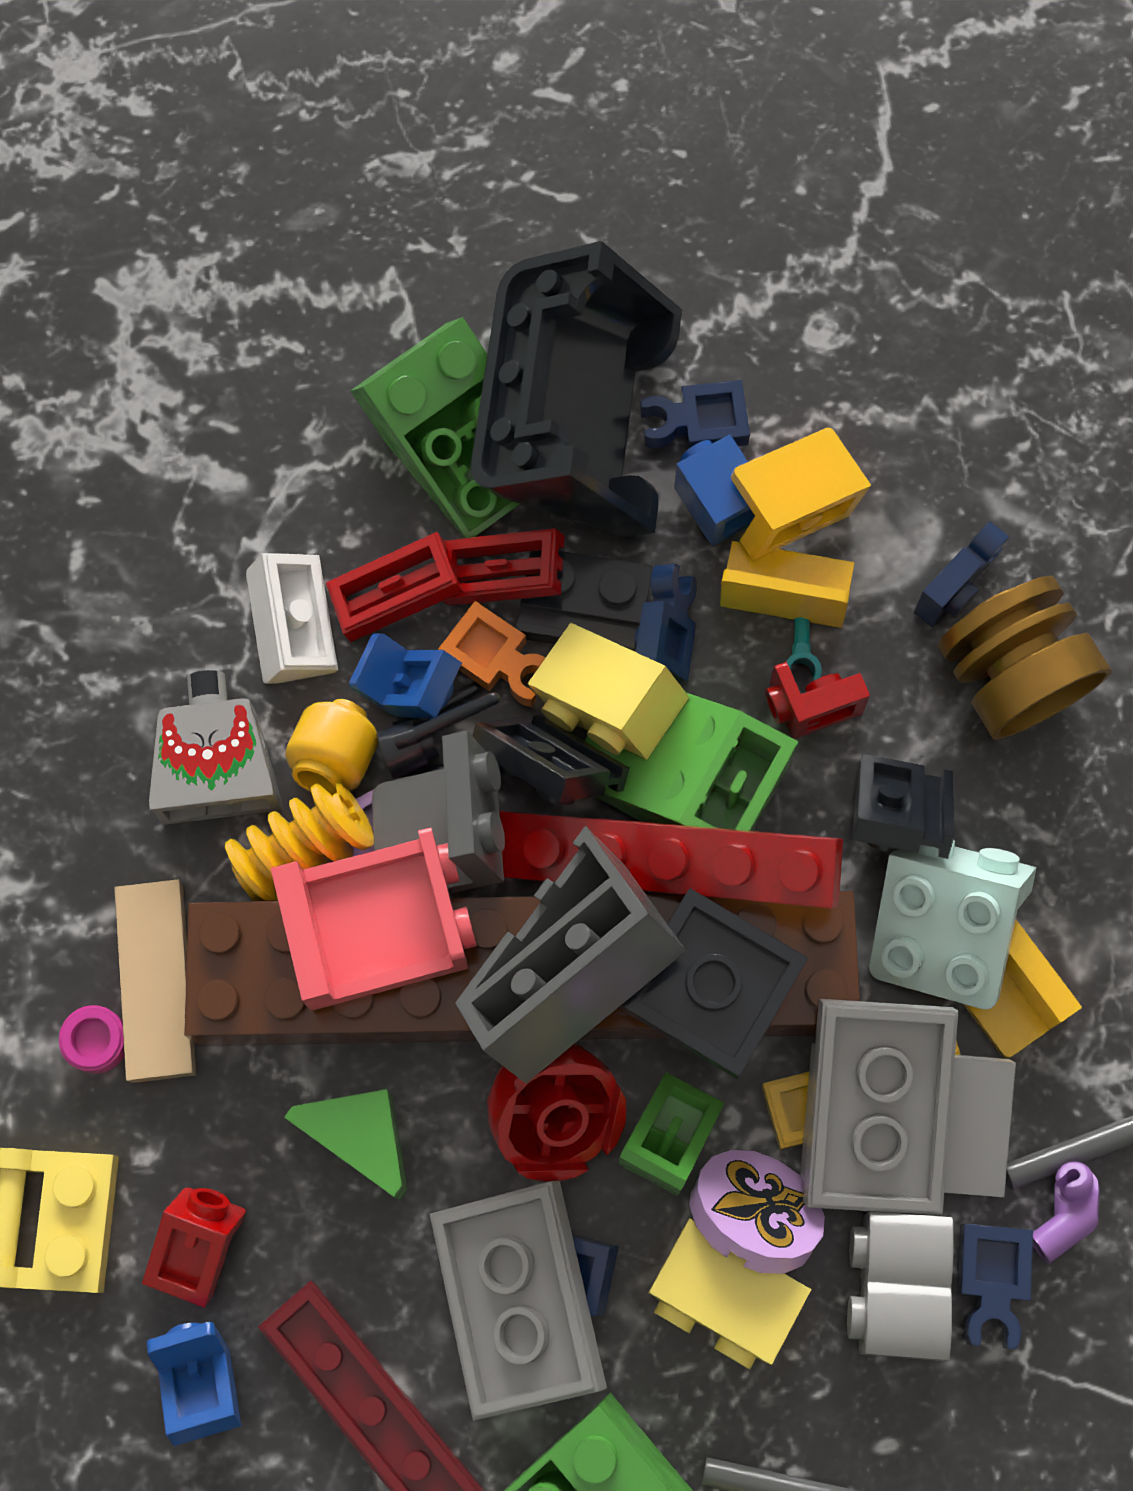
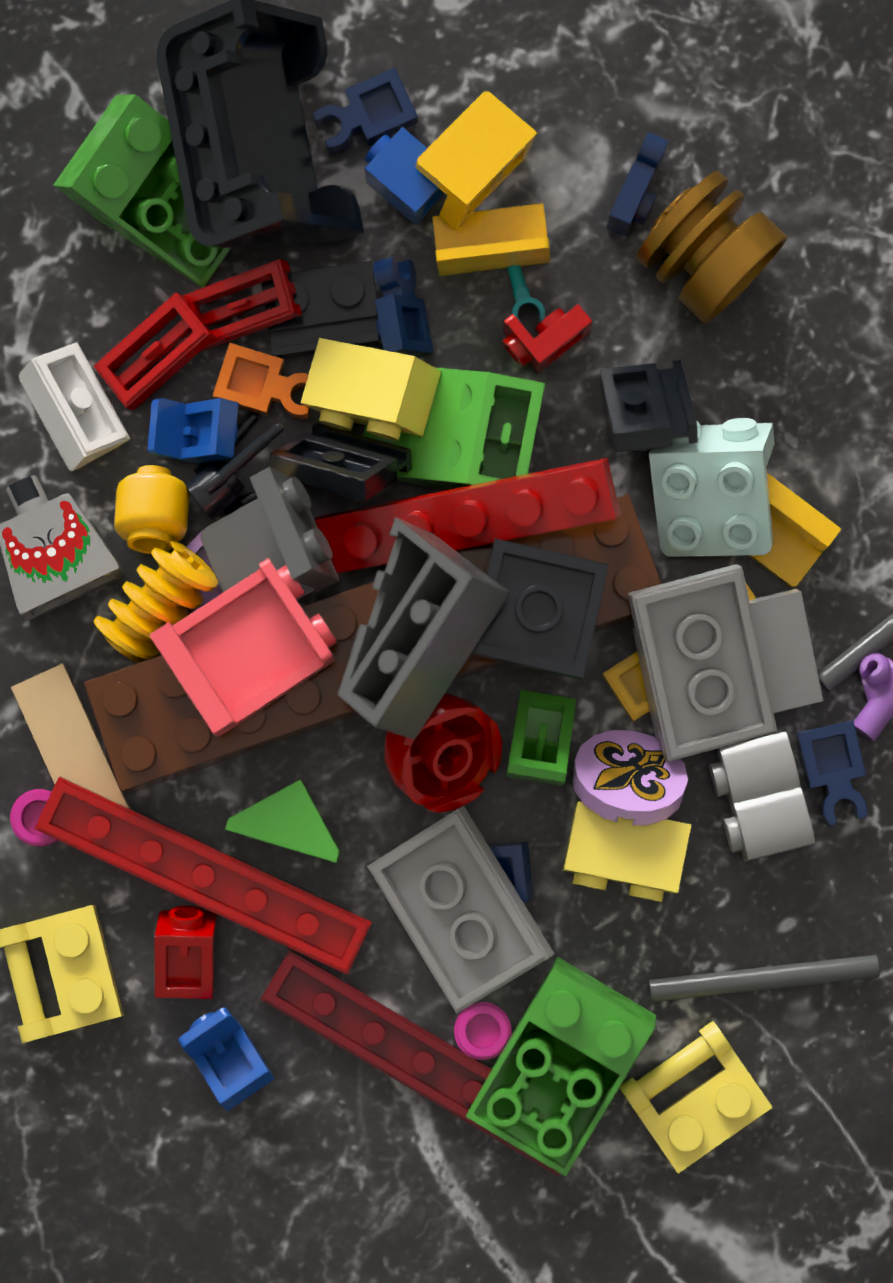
camera: 20 degrees left, 10 degrees up
(246, 1164) = (203, 875): none -> red tile
(496, 1451) = (482, 1030): none -> dark pink tile

